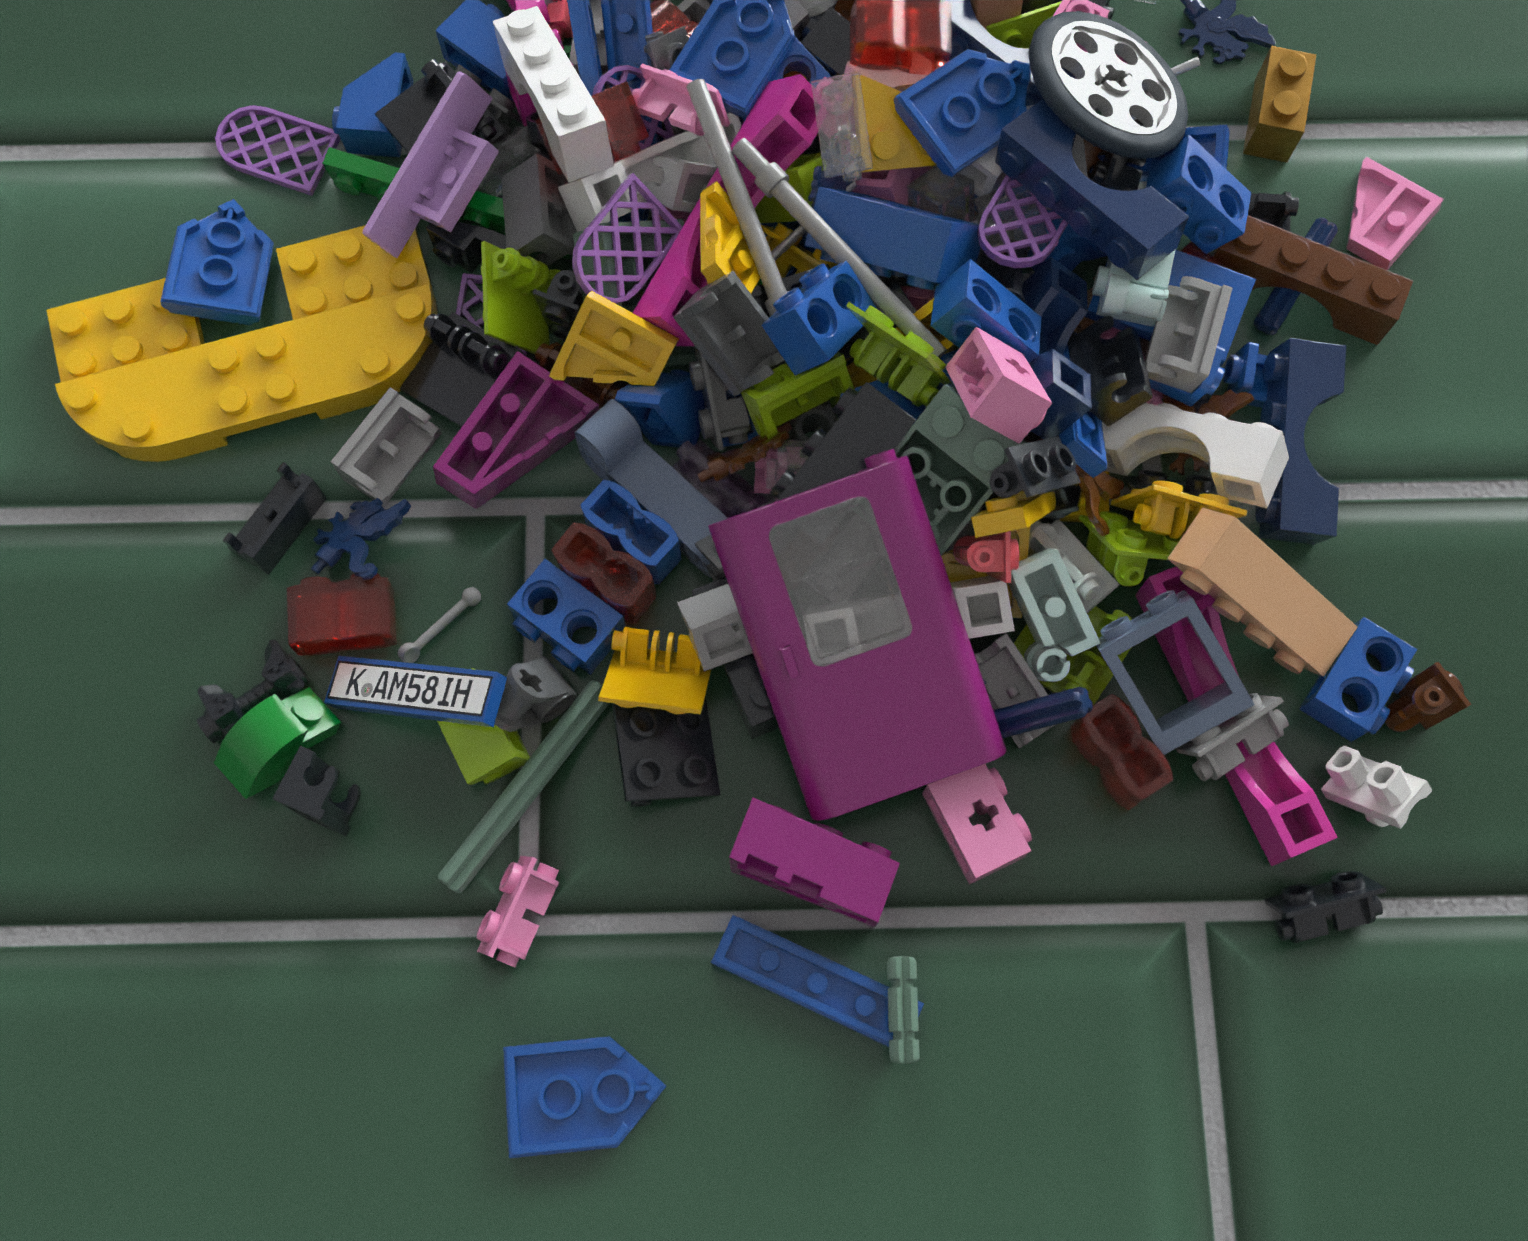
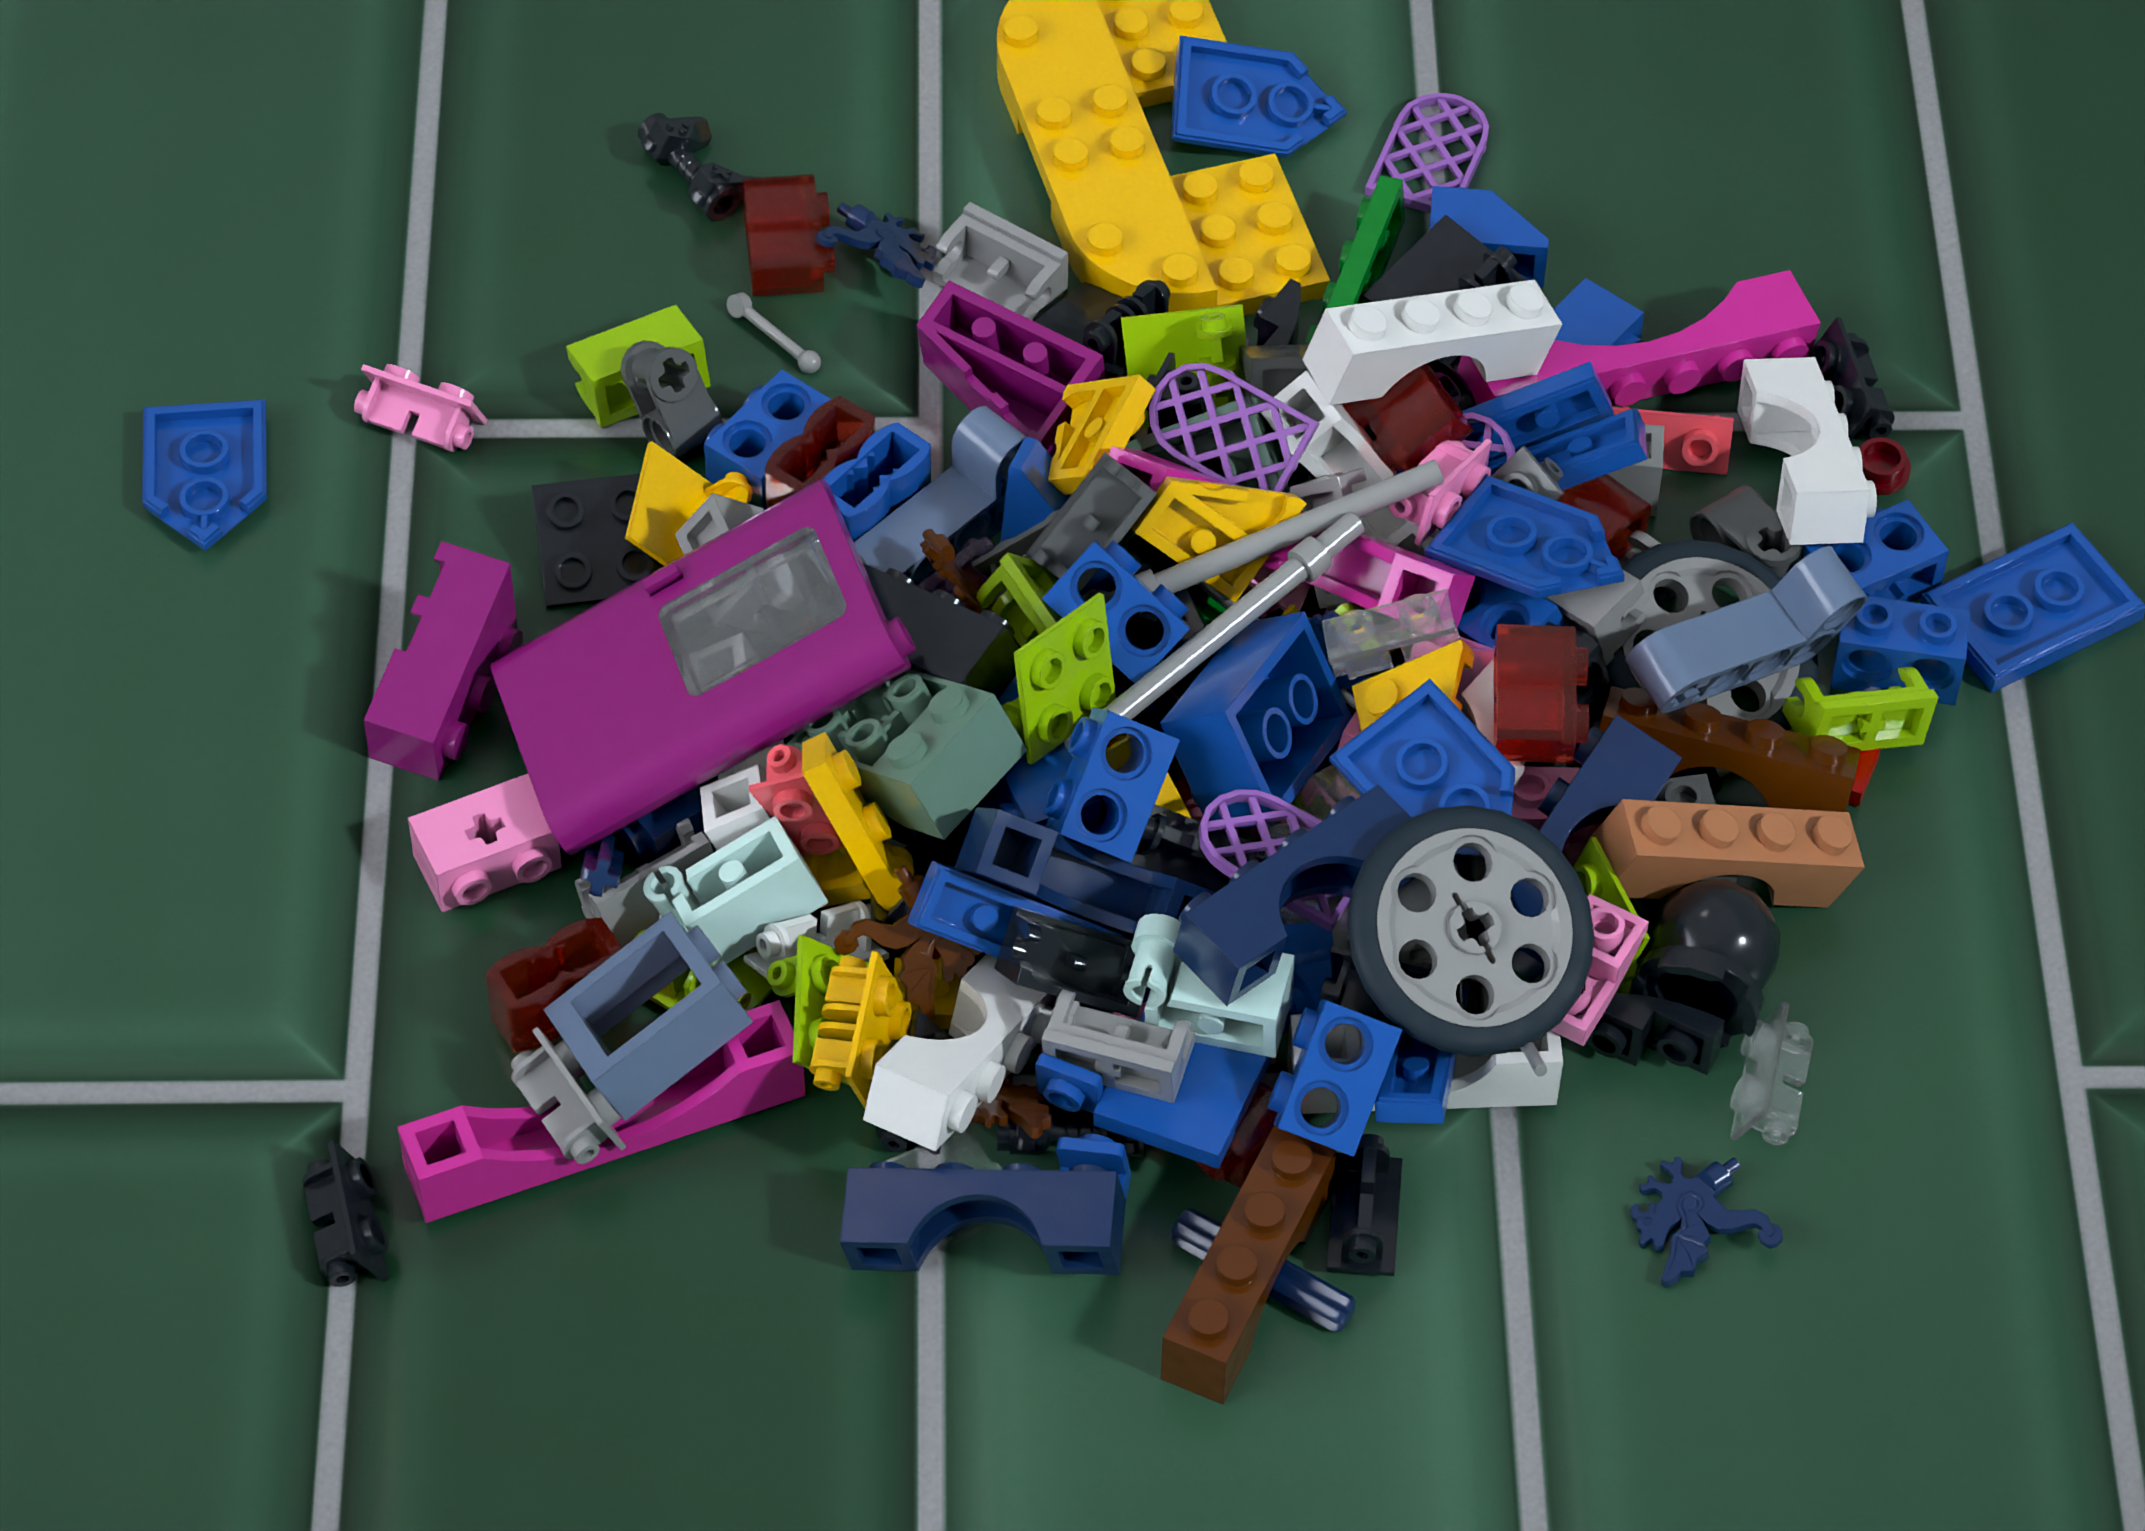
camera: 90 degrees right, 20 degrees down
(268, 737) = (635, 170): green brick -> none
(277, 520) = (907, 175): black hinge -> none
(308, 791) = (561, 209): black hinge -> none
(416, 690) = (675, 287): tile -> none
(438, 170) = (1345, 264): lavender bracket -> none
(523, 789) = (546, 403): sand green axle -> none
(805, 979) = (305, 694): blue tile -> none
(903, 1010) = (261, 754): sand green axle -> none
(998, 386) = (998, 757): bright pink brick -> none
(1035, 469) = (888, 802): black hinge -> none
(1262, 592) = (744, 1112): light nougat brick -> none
(1279, 104) = (1539, 1254): pearl gold brick -> none
(1357, 678) = (653, 1265): blue brick -> none
(1373, 788) = (490, 1262): white hips -> none
(1387, 214) = (1362, 1390): bright pink wing -> none
(1427, 700) = (602, 1320): reddish brown hinge -> none

